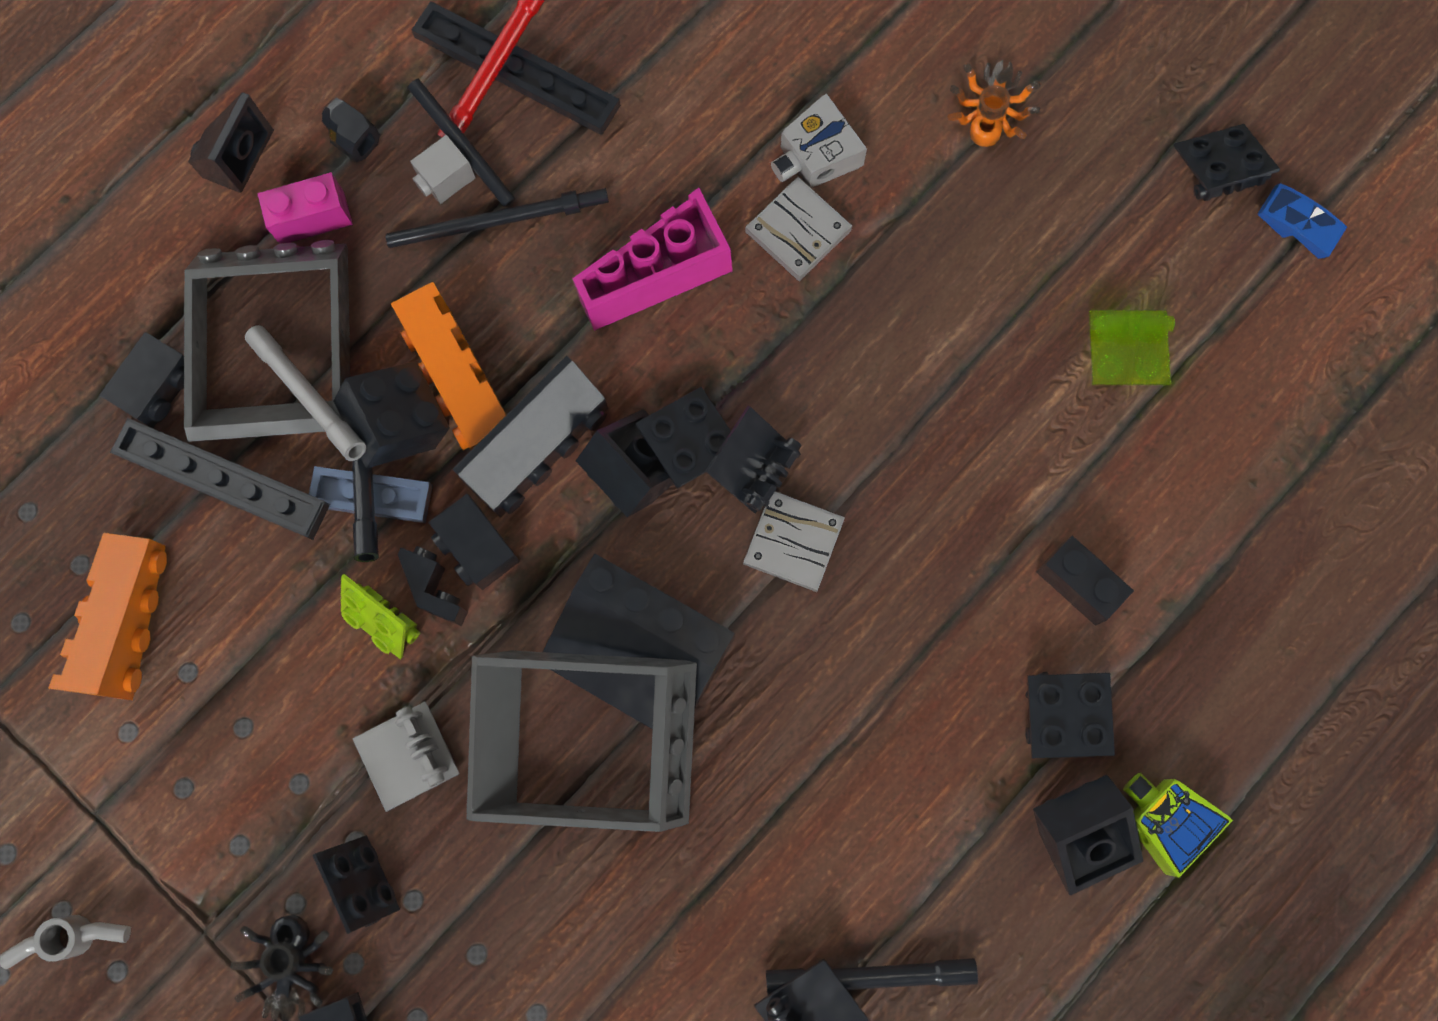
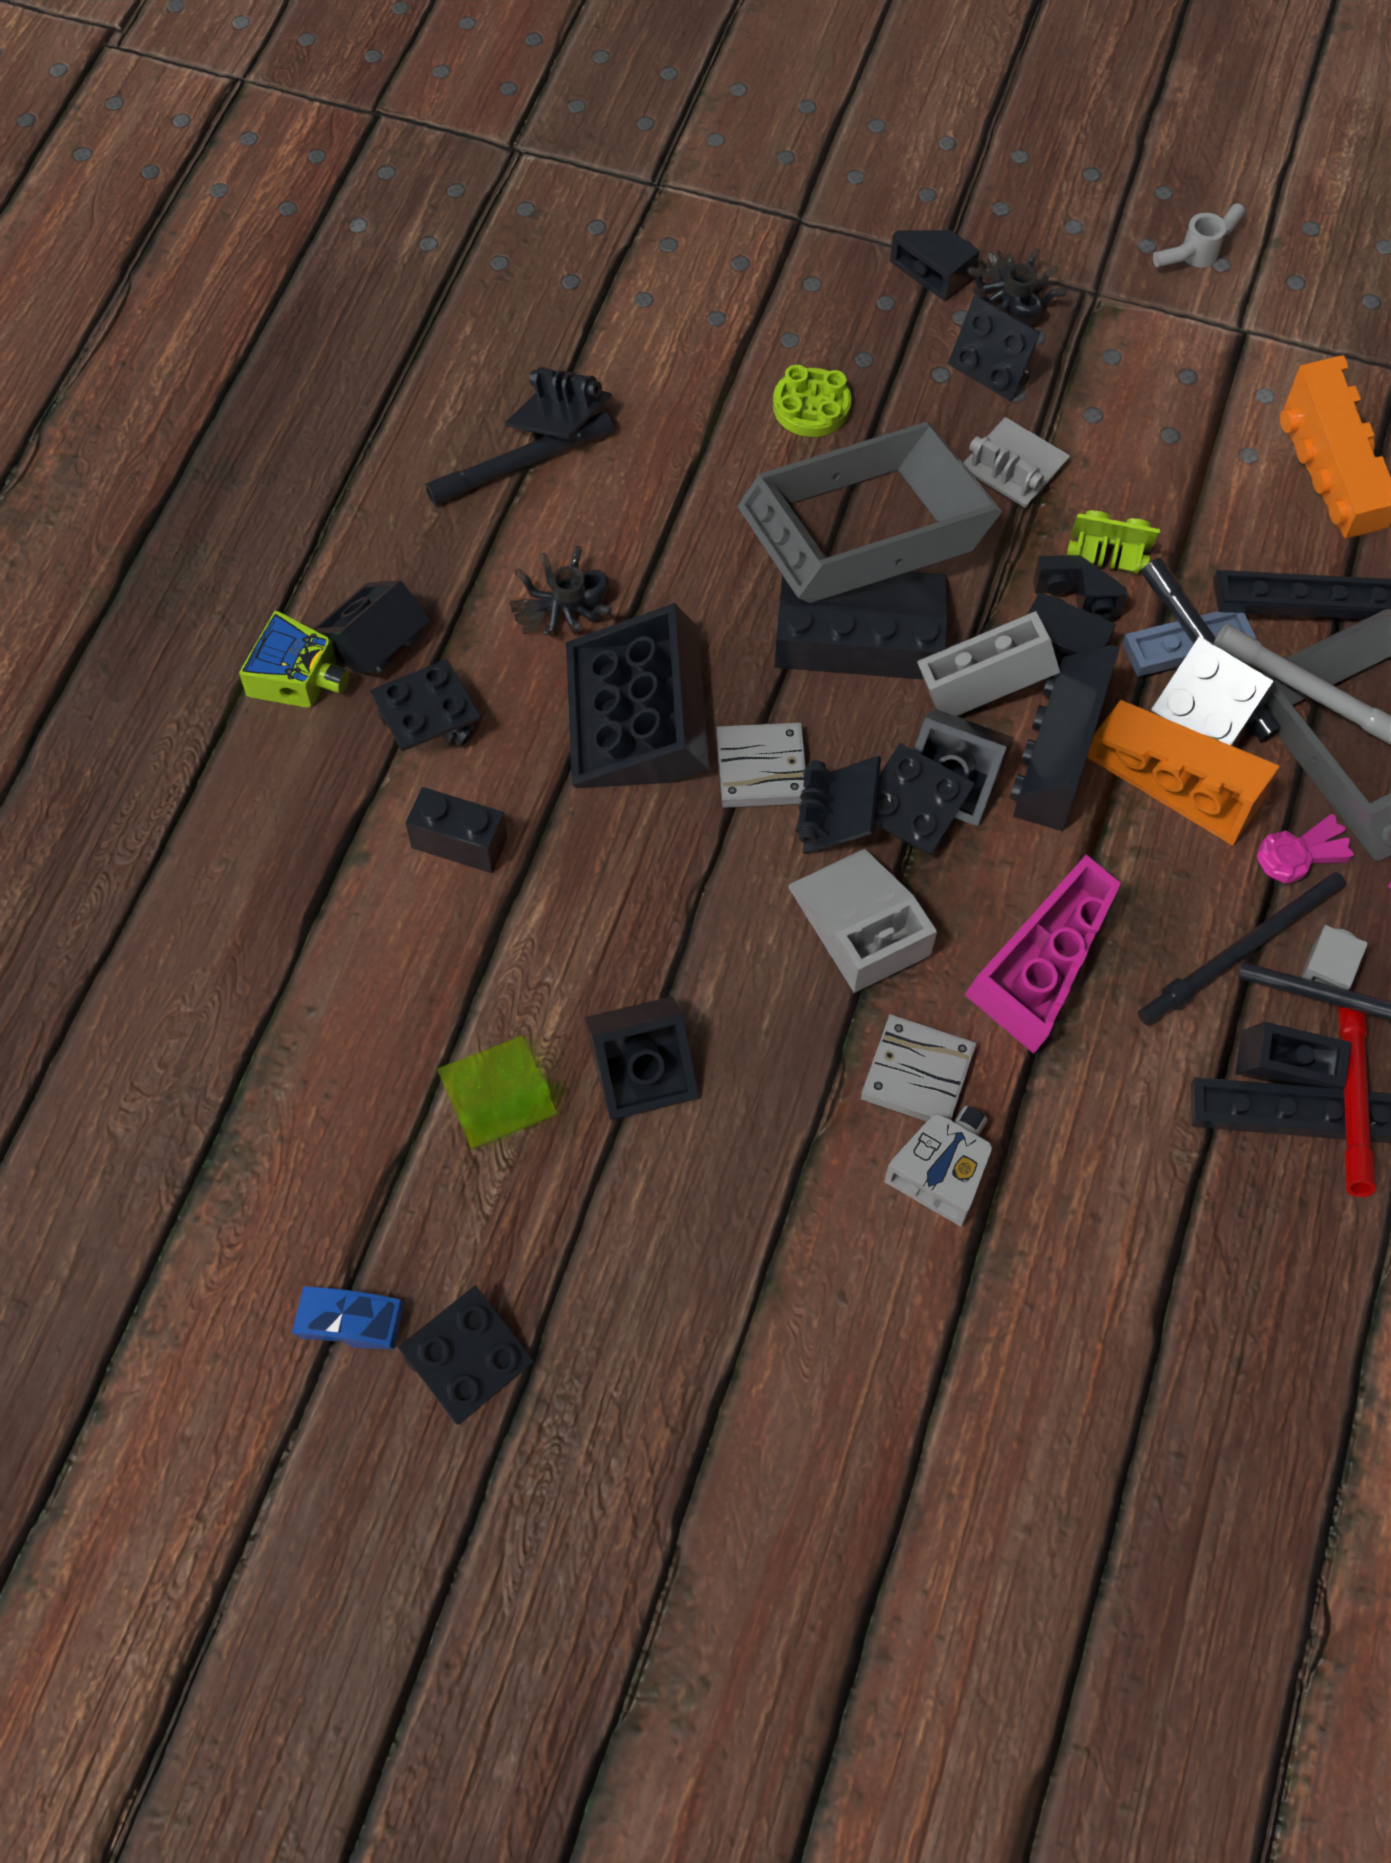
camera: 150 degrees right, 15 degrees down
(410, 271) = (1290, 857): none -> dark pink piece
(523, 107) = (1292, 1056): none -> black slope
(556, 919) = (812, 401): none -> lime tile
(563, 526) = (989, 665): none -> light grey brick
(783, 358) = (865, 919): none -> light grey slope
(877, 643) = (637, 702): none -> black slope
(894, 787) = (570, 593): none -> animal
(993, 105) = (768, 1298): animal -> none
(1009, 324) = (642, 1057): none -> black slope

